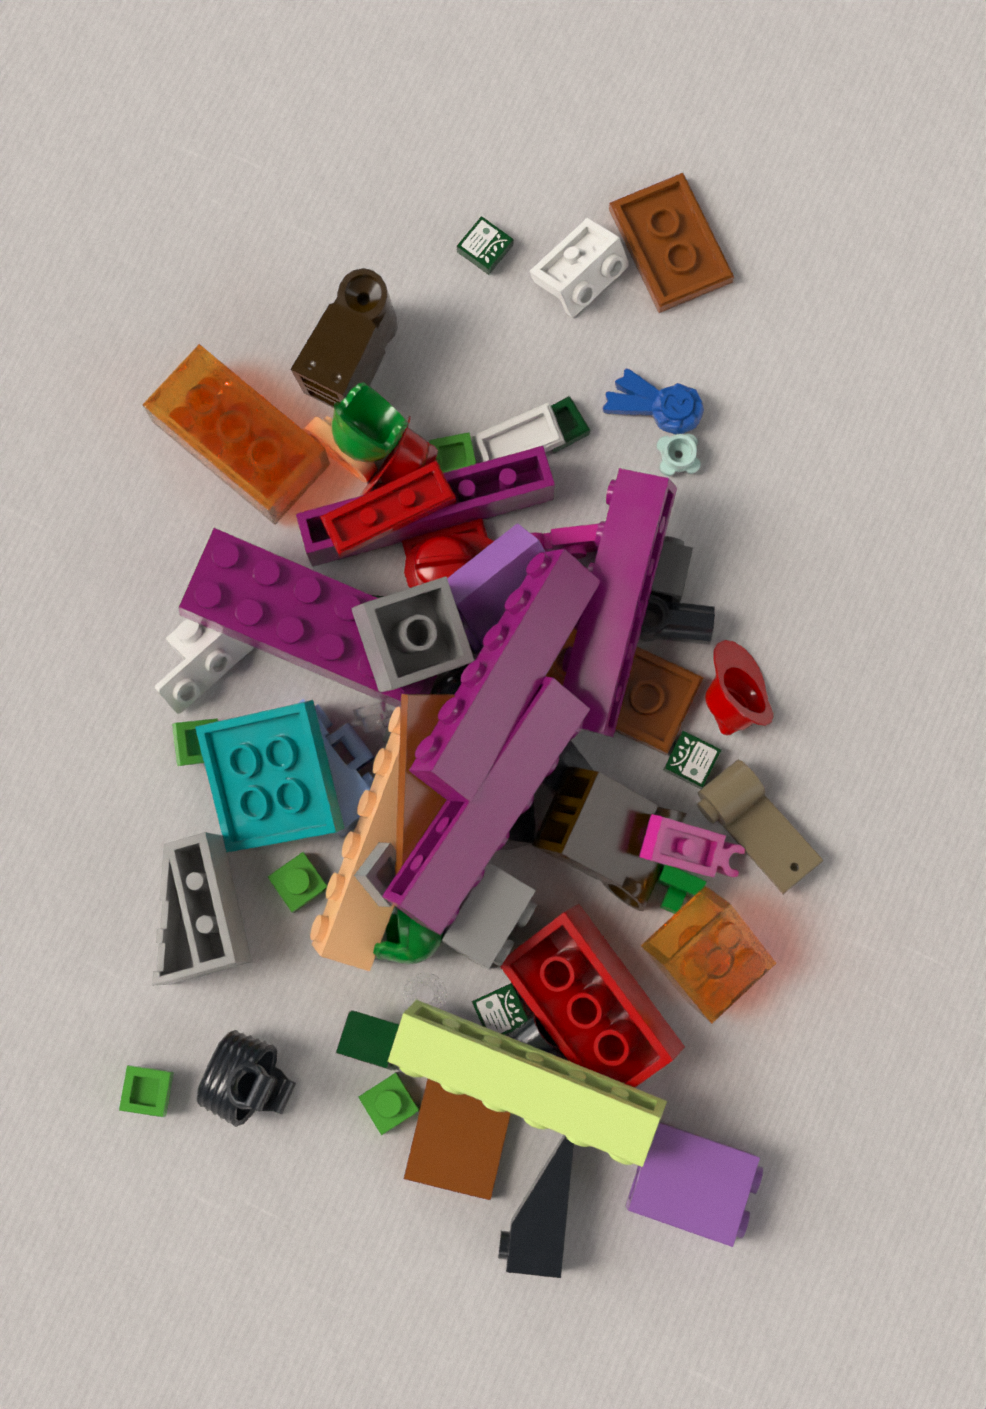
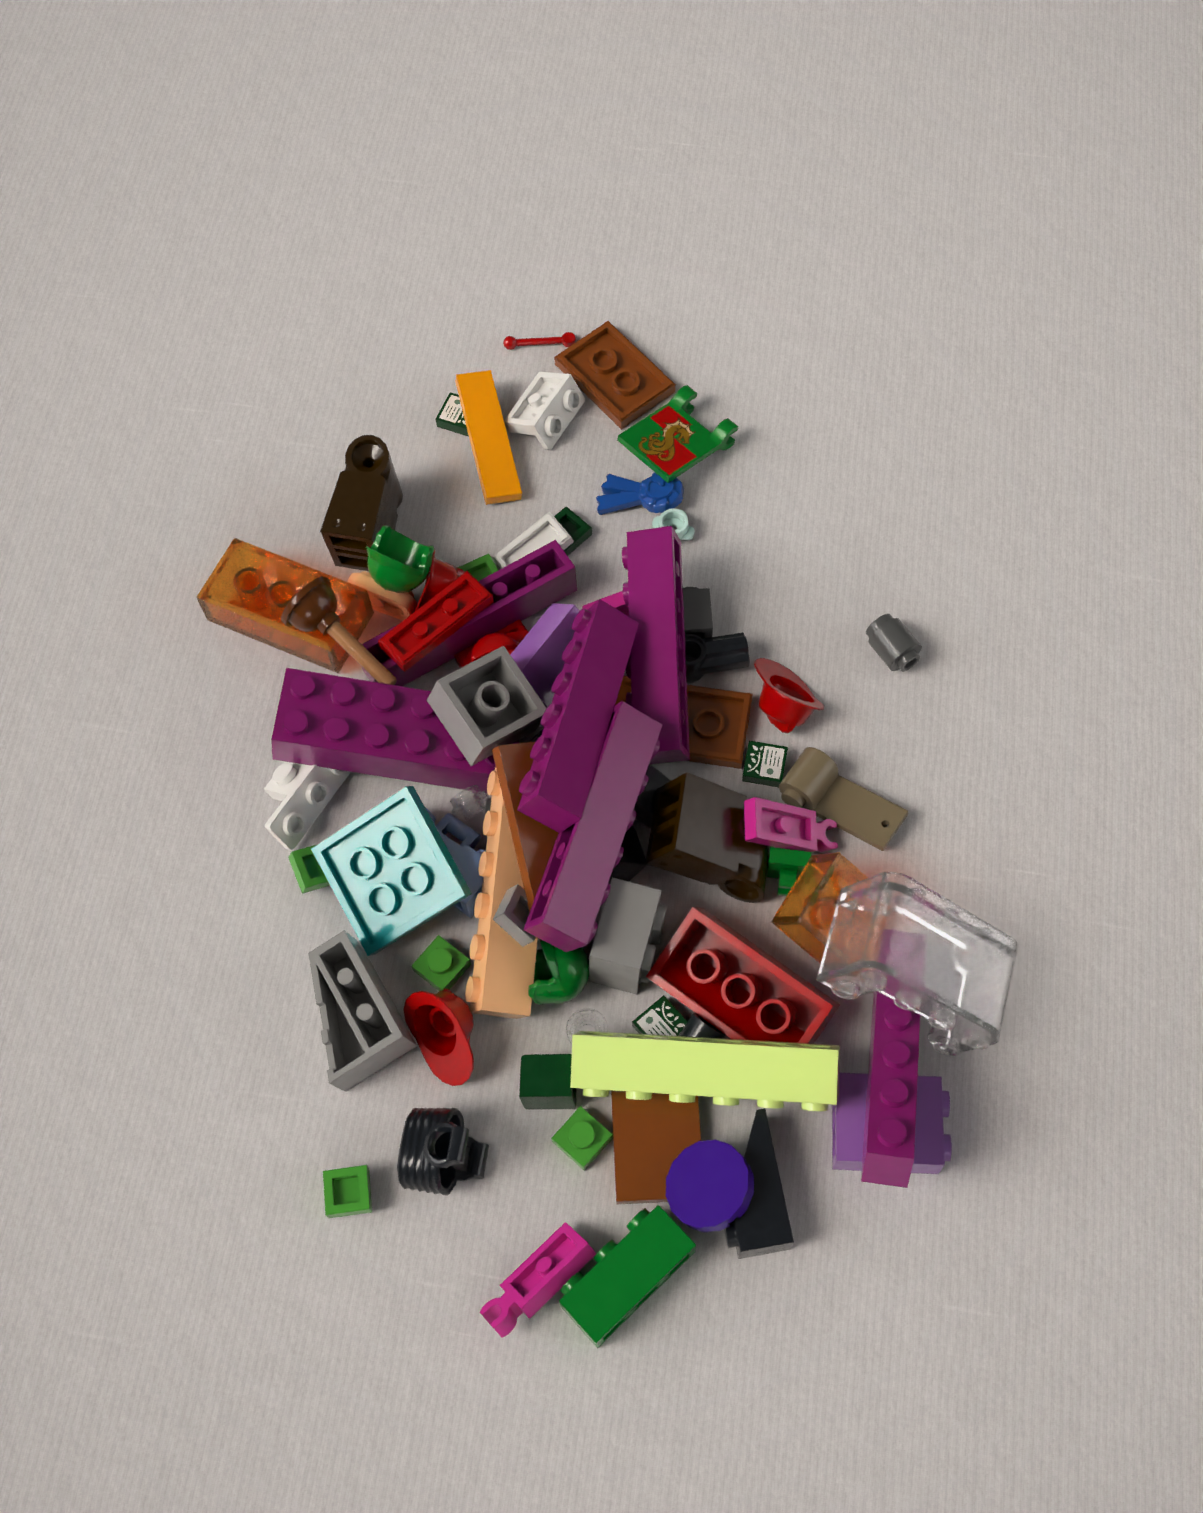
camera: 15 degrees left, 15 degrees down
(262, 467) = (315, 610): none -> reddish brown piece
(280, 957) = (443, 1033): none -> red piece
(307, 1232) = (538, 1279): none -> dark pink plate
(391, 1255) = (626, 1274): none -> green brick
(496, 1198) = (709, 1185): none -> dark purple tile
(508, 286) = (488, 437): none -> light orange tile
(631, 181) = (567, 340): none -> red hinge
(710, 349) = (673, 440): none -> green flag
(716, 1131) = (891, 1094): none -> magenta brick
(774, 1044) = (924, 956): none -> clear windscreen
(872, 664) = (893, 643): none -> dark grey brick

